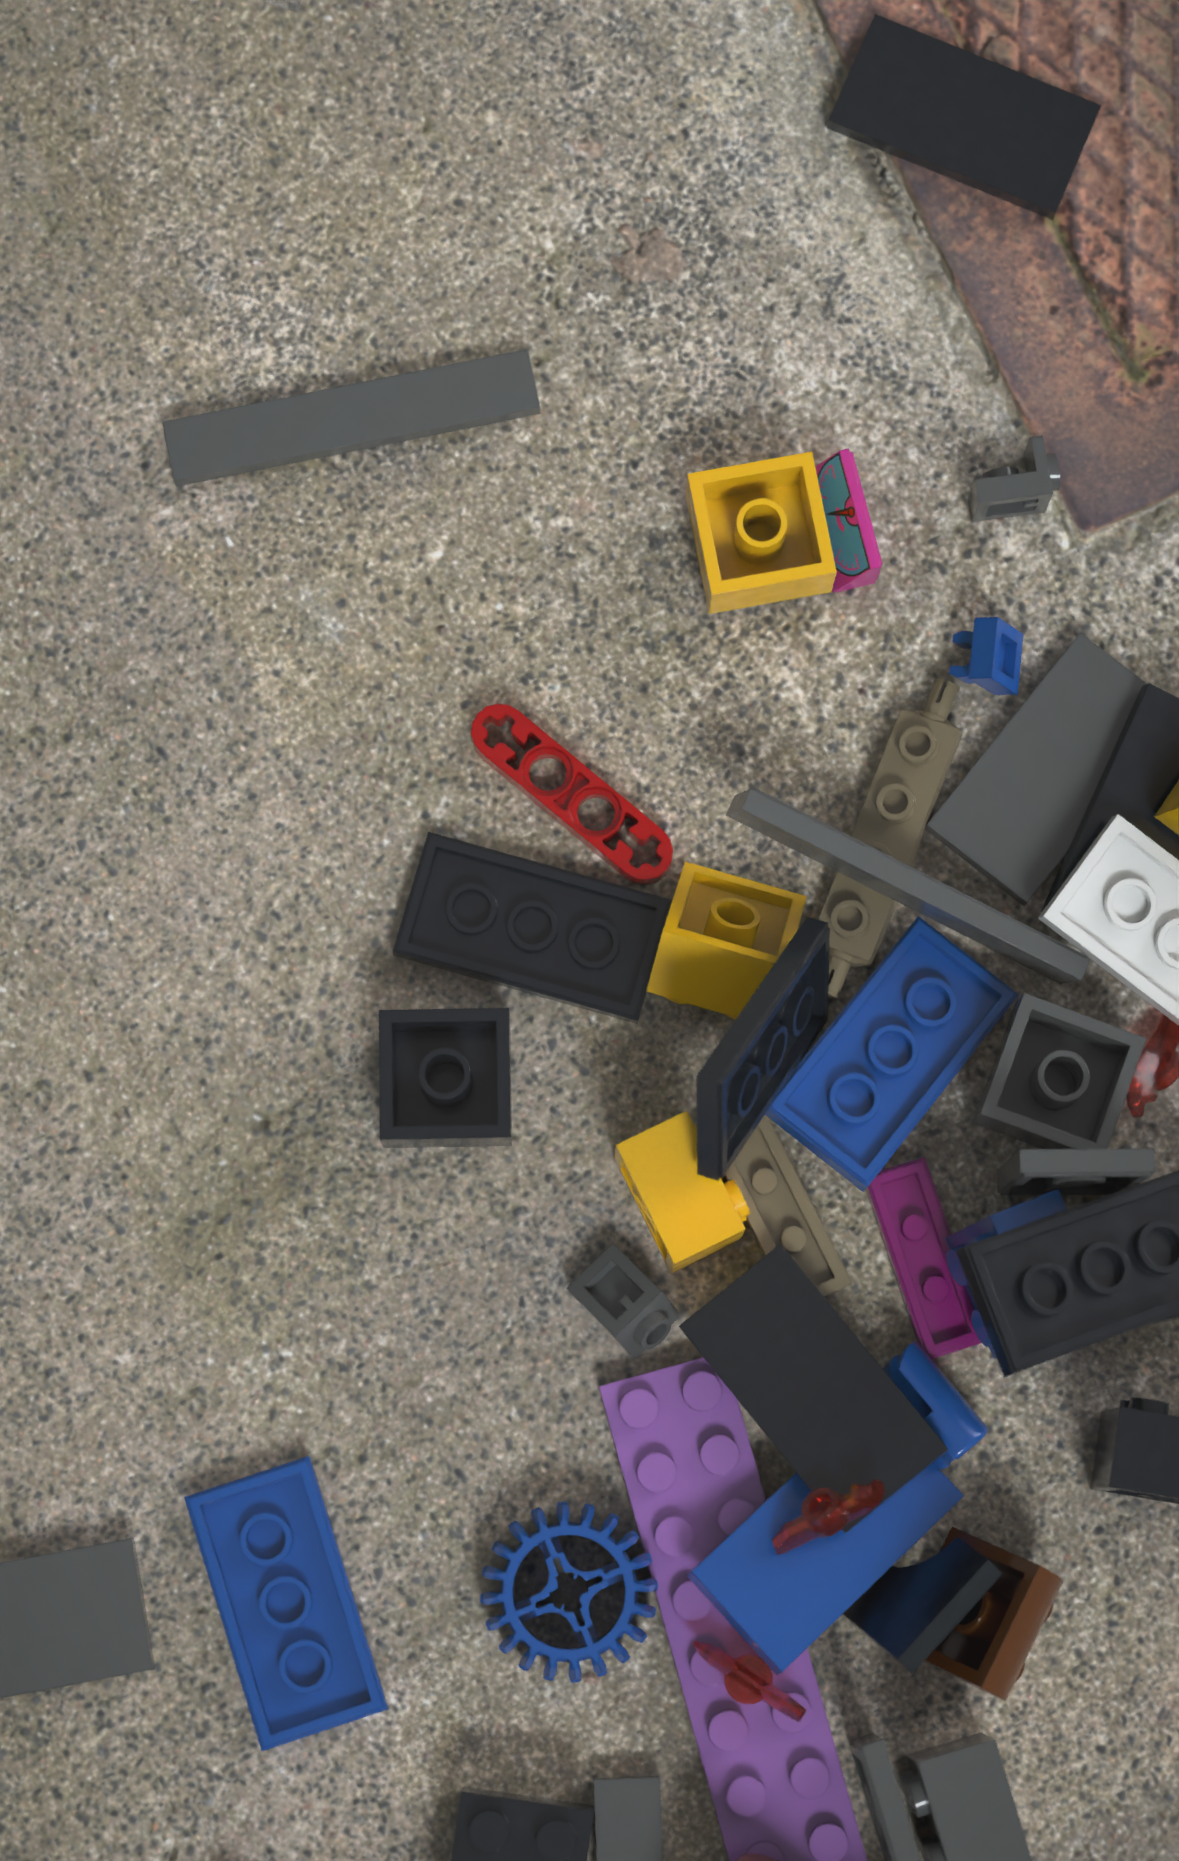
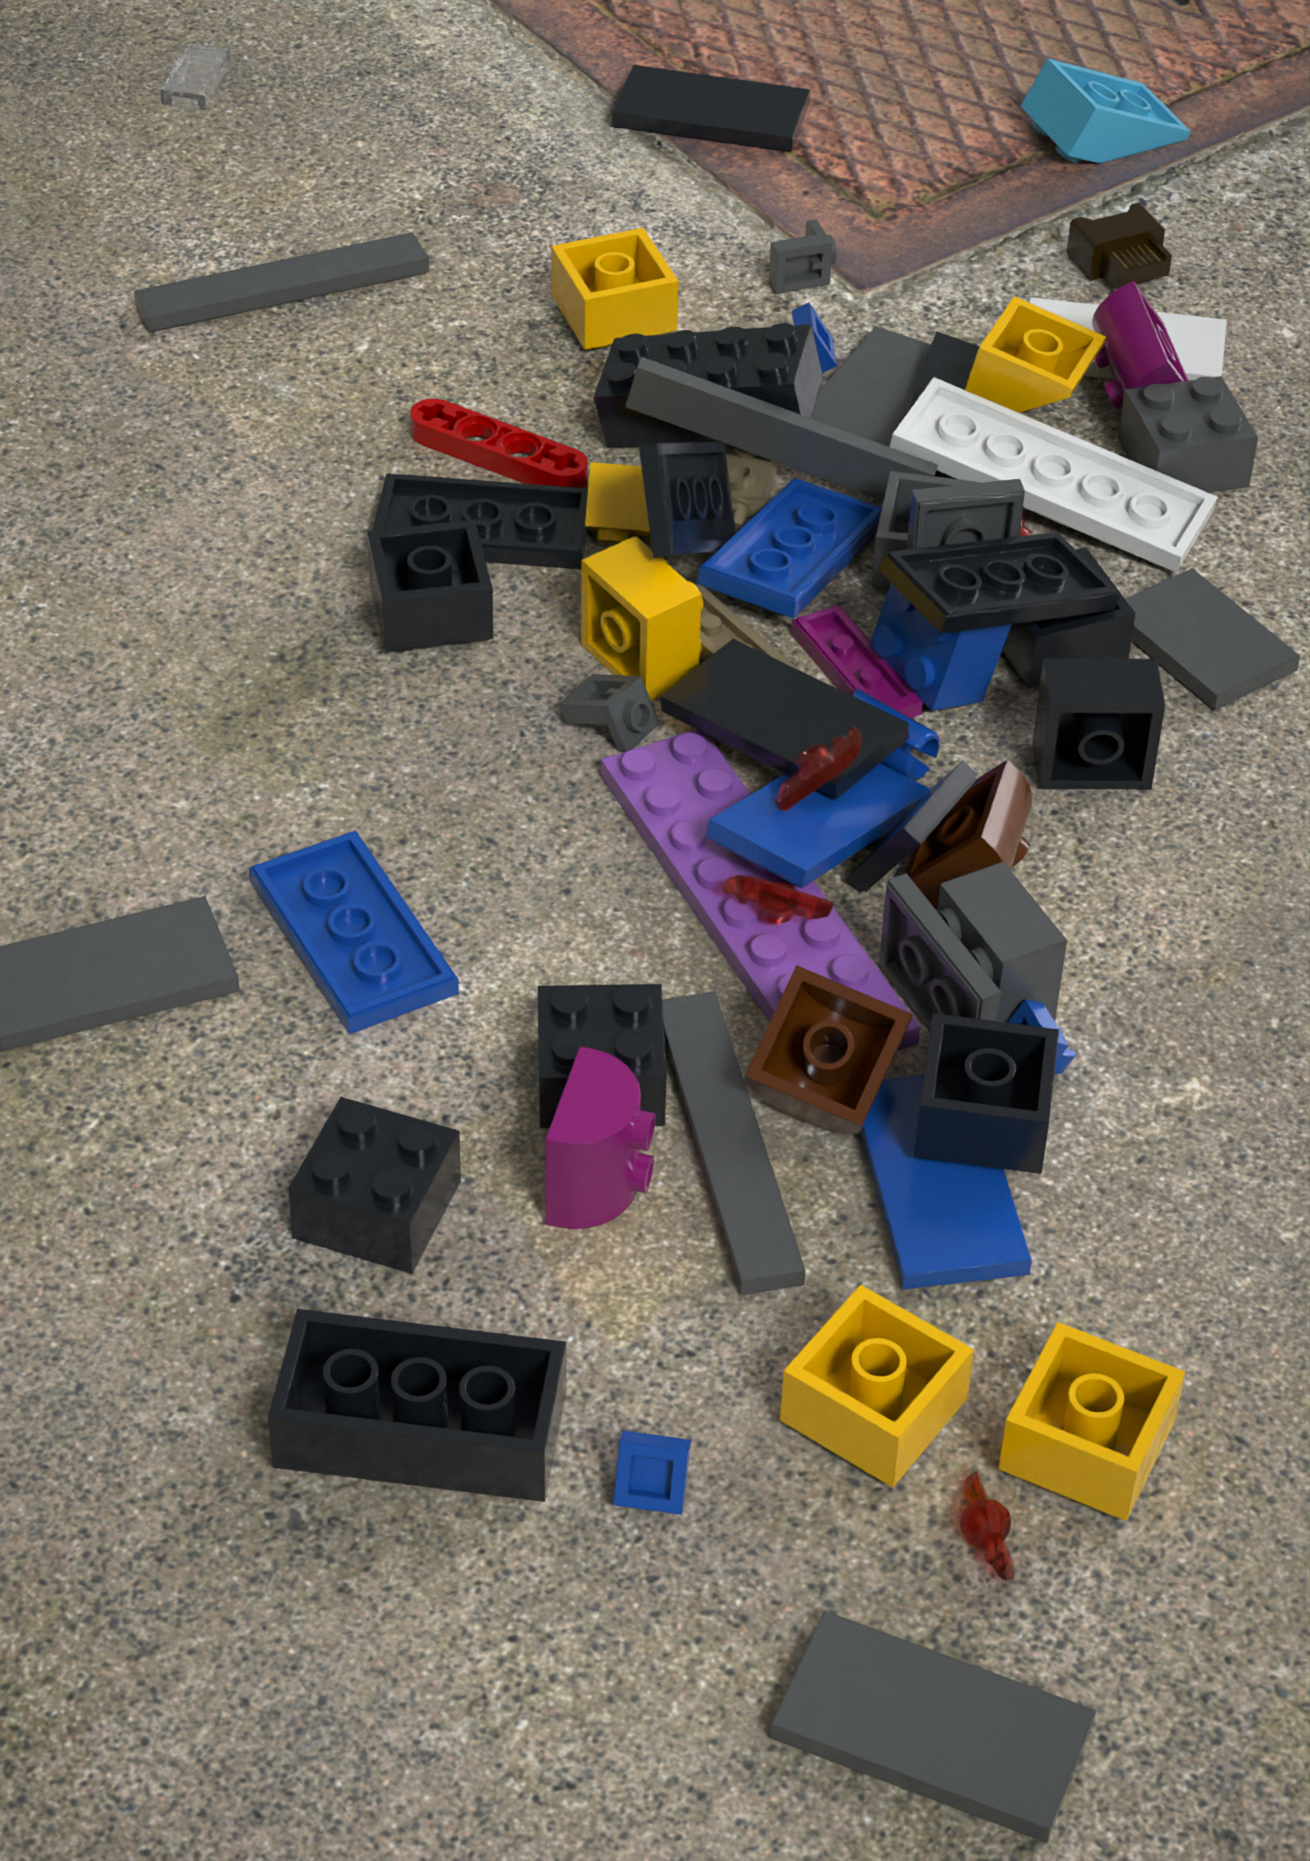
camera: 10 degrees left, 35 degrees down
(516, 1613) = (604, 881): blue gear -> none
(844, 763) = (764, 363): none -> black brick
(848, 523) = (694, 291): slope -> none

